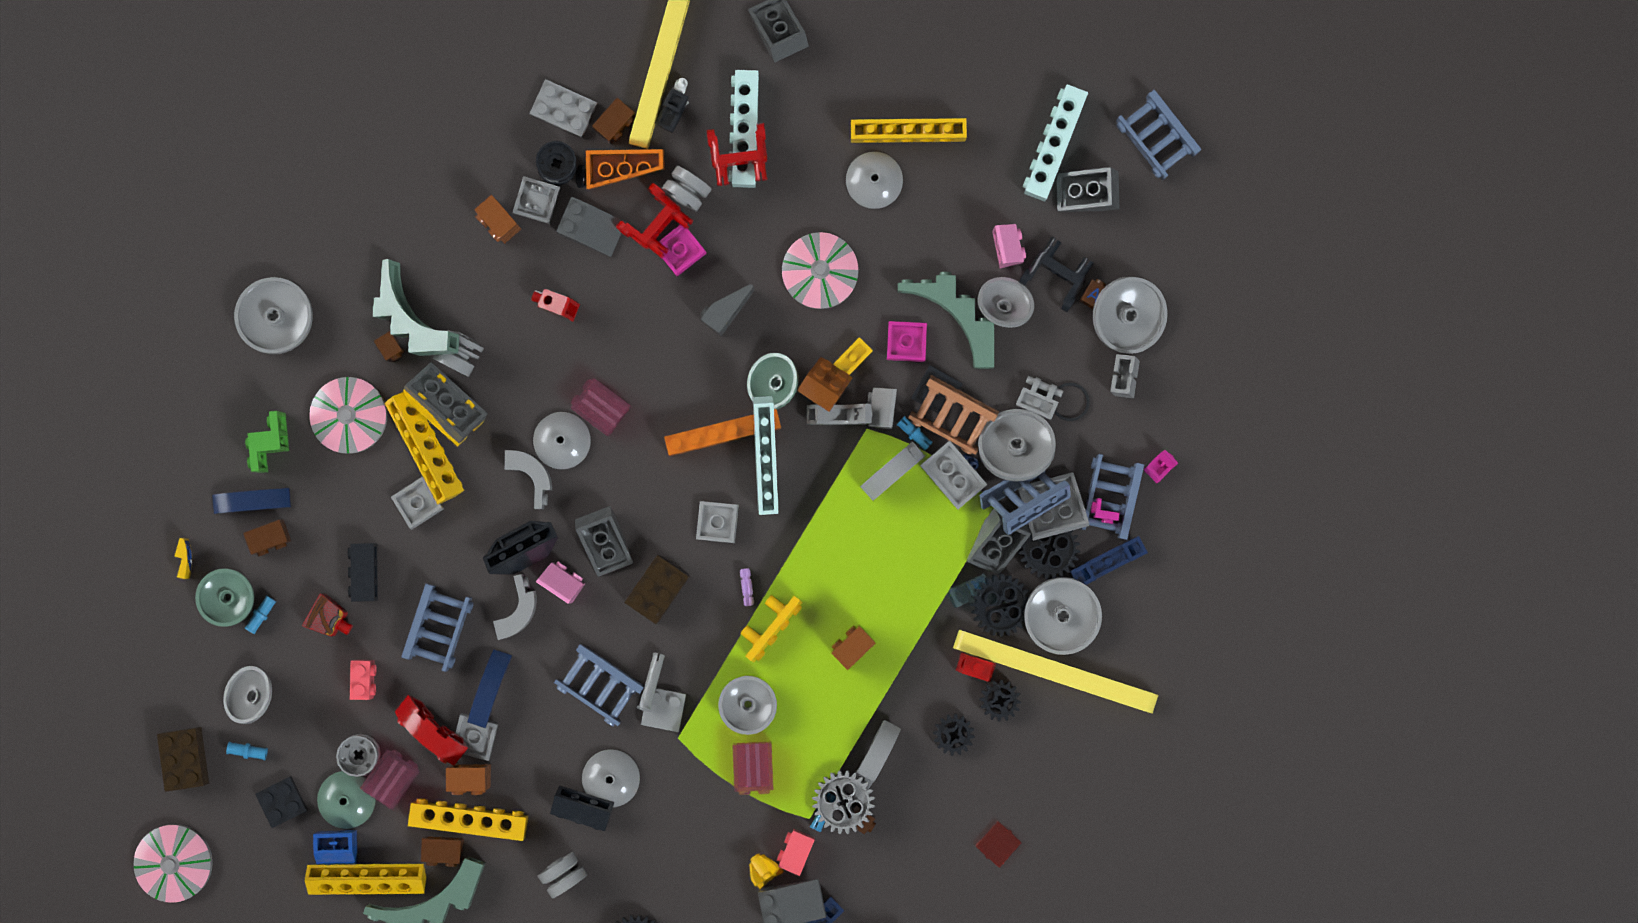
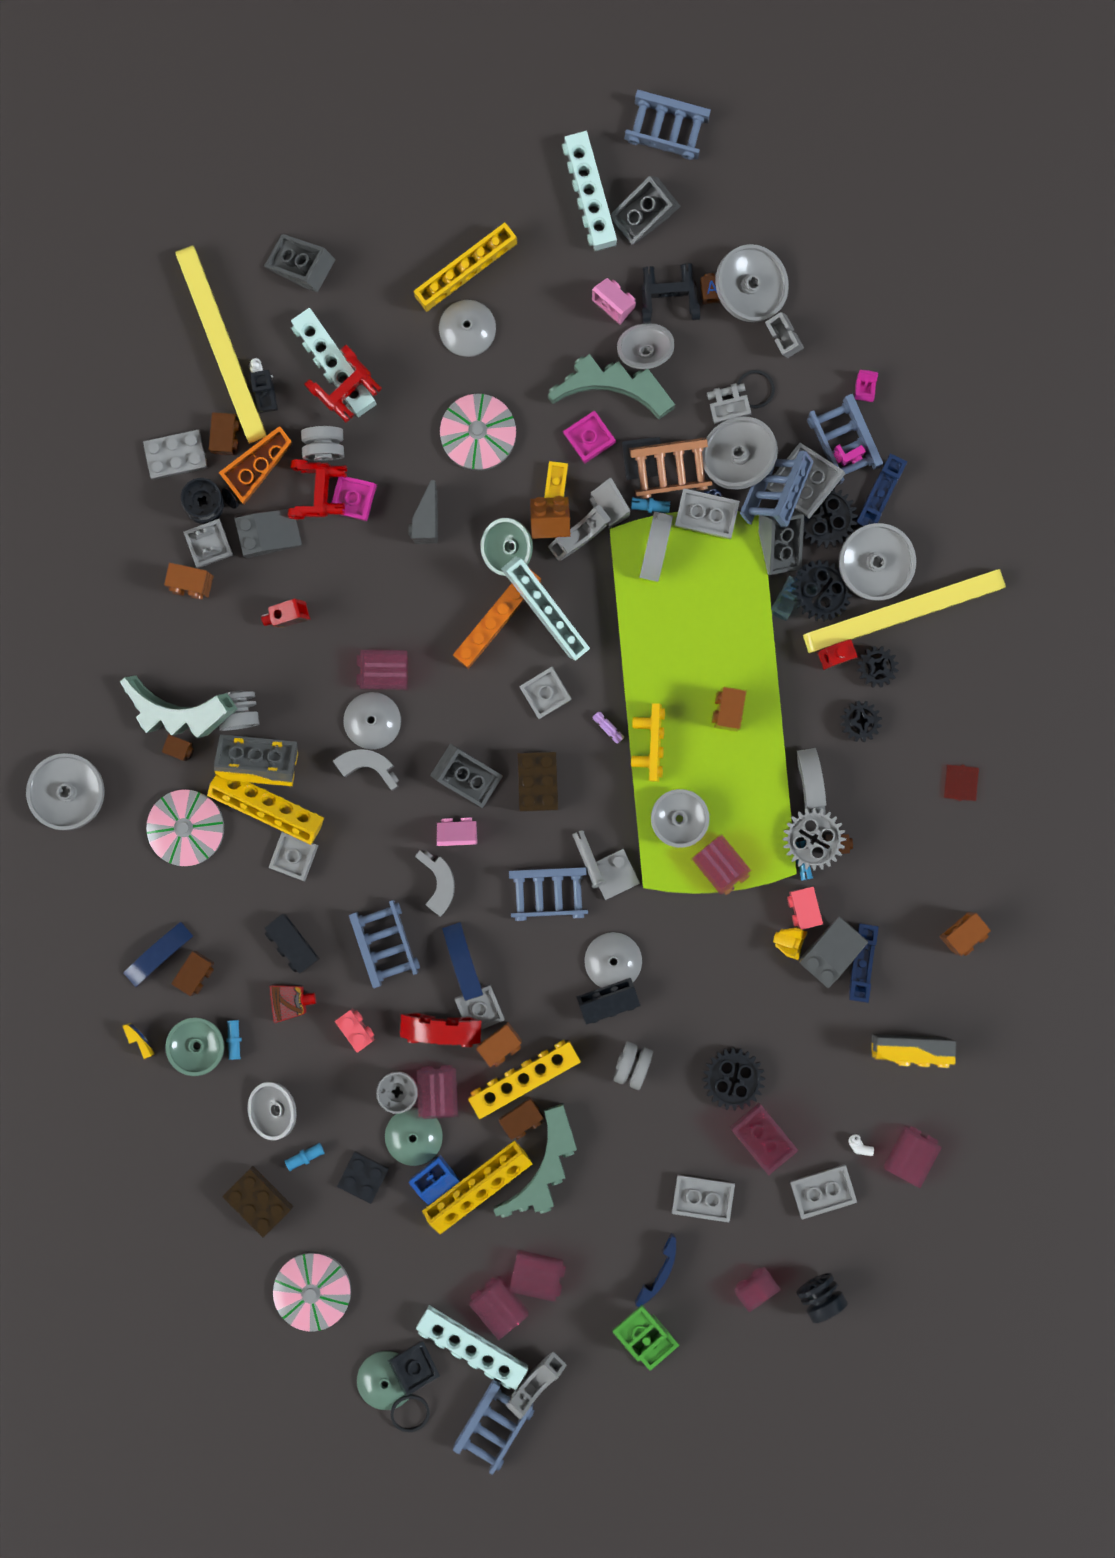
camera: 35 degrees left, 0 degrees up
(267, 442) = (136, 896): bright green bracket -> none
(520, 548) = (404, 829): black wedge -> none

